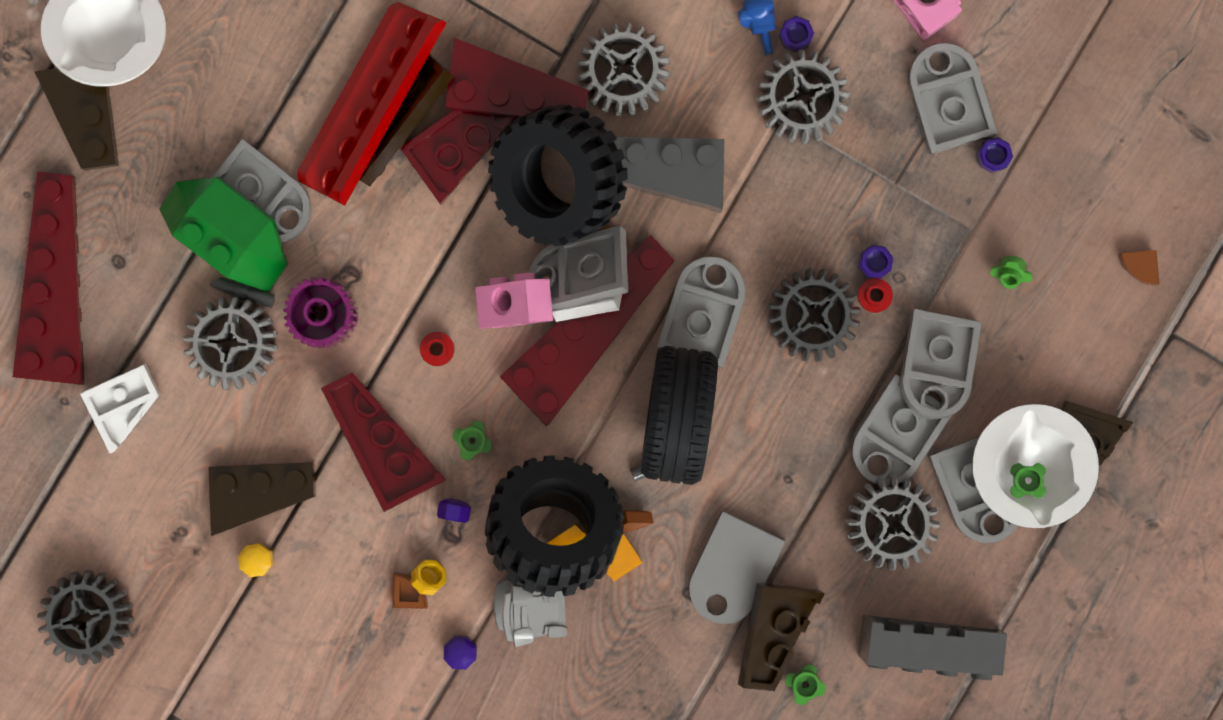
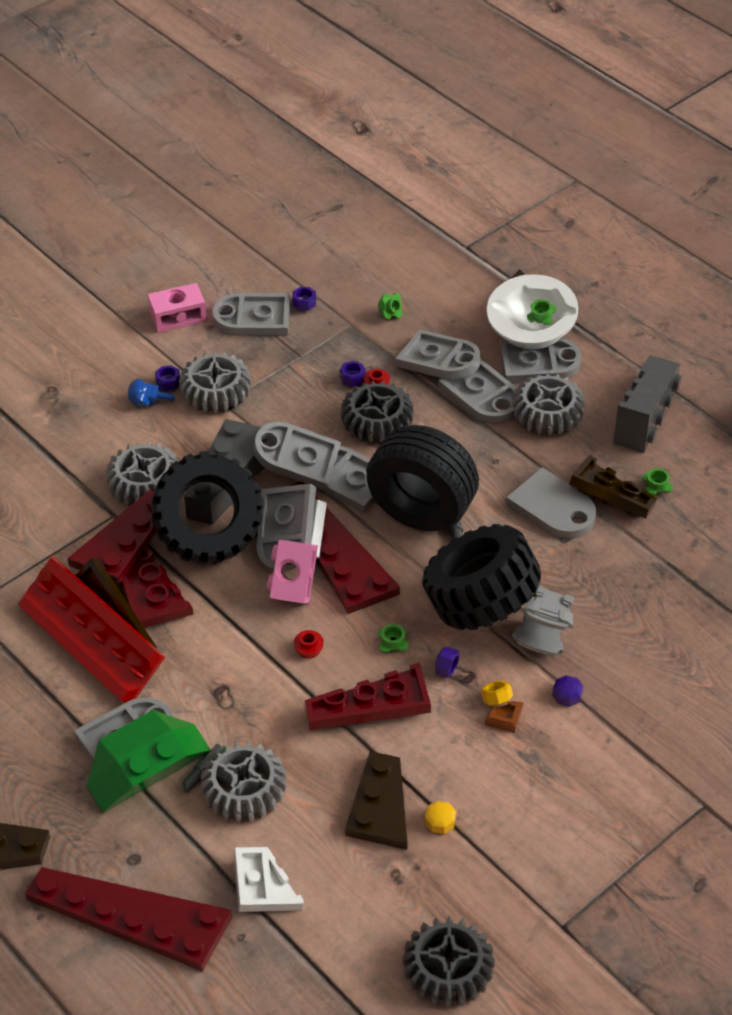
camera: 75 degrees left, 40 degrees down
(301, 311) = (245, 705): magenta brick -> none
(698, 247) = (297, 453): none -> light grey tile
(1141, 266) = (413, 247): dark orange tile -> none

